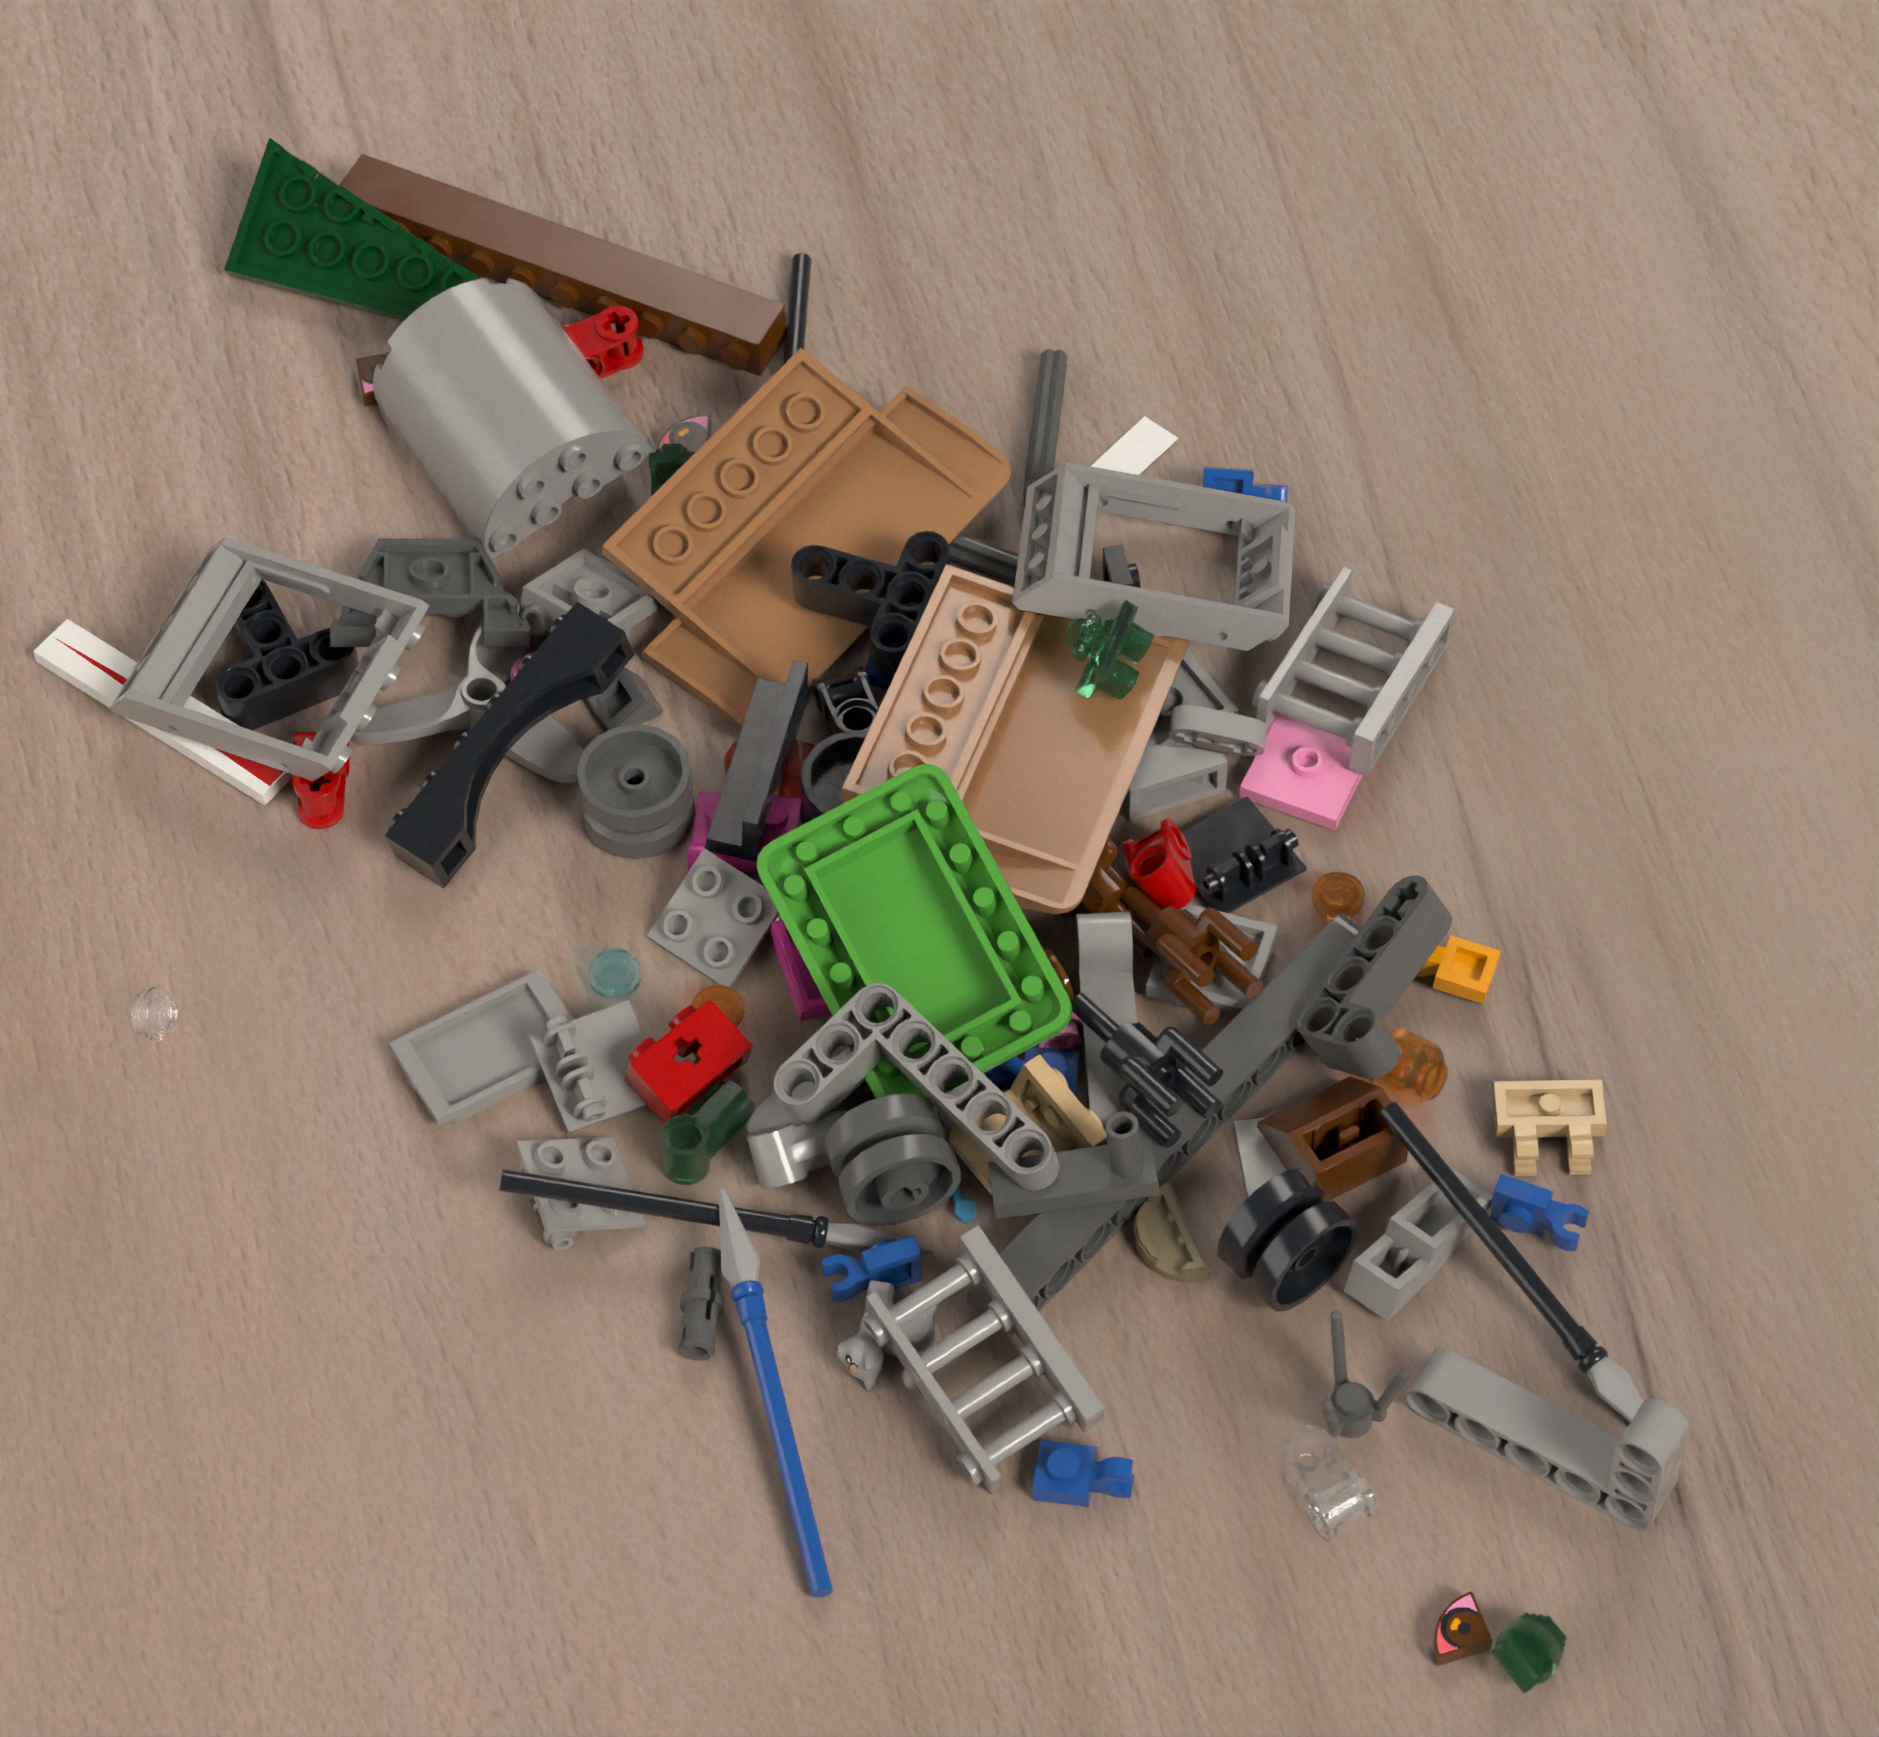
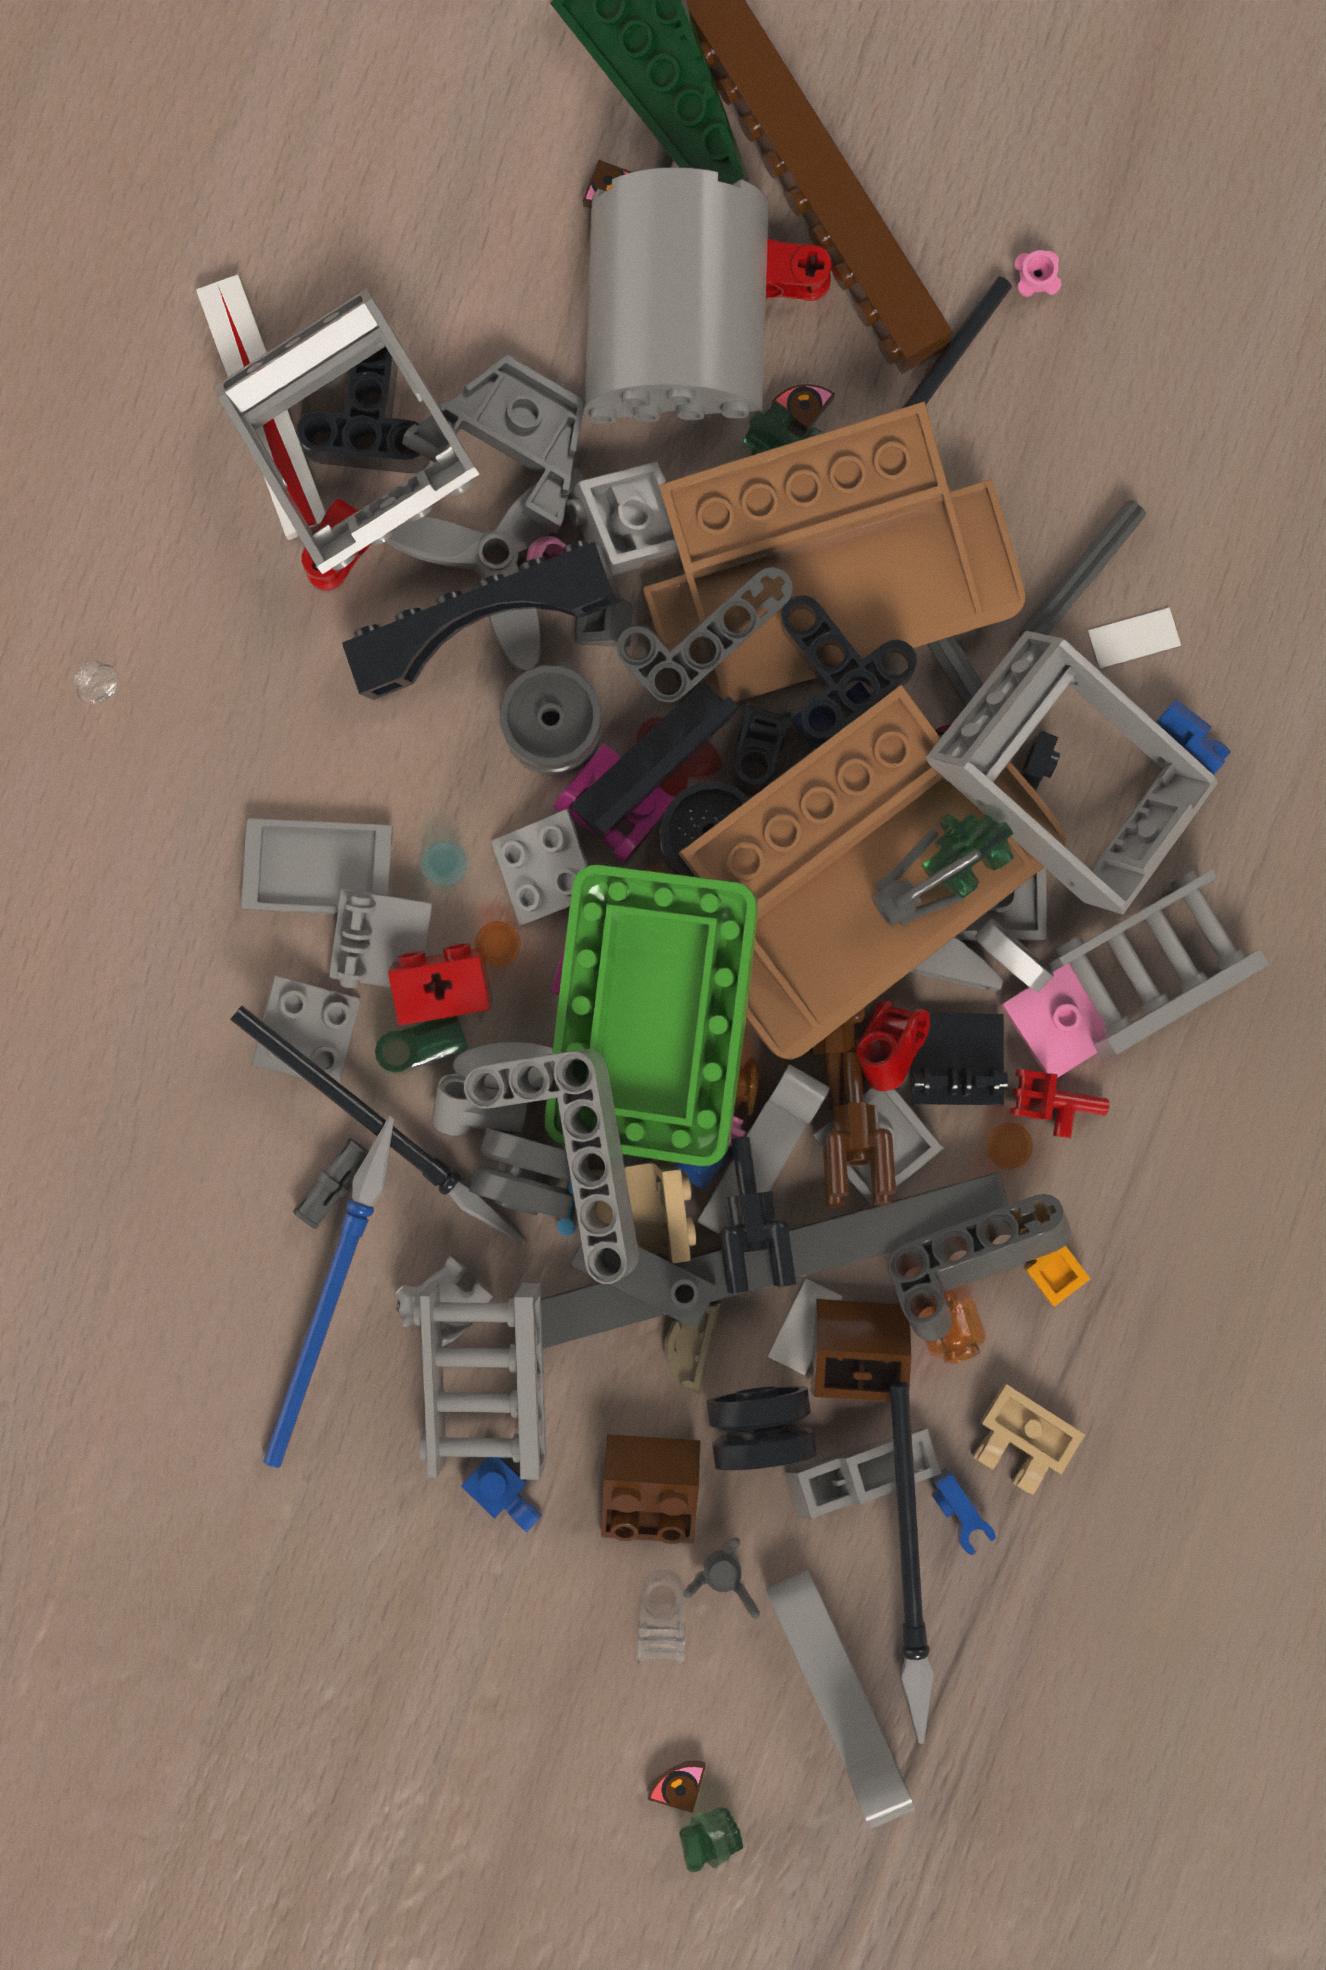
camera: 30 degrees right, 30 degrees up
(738, 633) = (712, 628): none -> dark grey beam
(826, 236) = (1039, 260): none -> bright pink plate
(887, 1262) = (478, 1242): blue plate -> none
(1074, 721) = (898, 900): none -> dark grey plant
(1224, 1376) = (650, 1489): none -> reddish brown slope
(1335, 837) = (1039, 1096): none -> red arm

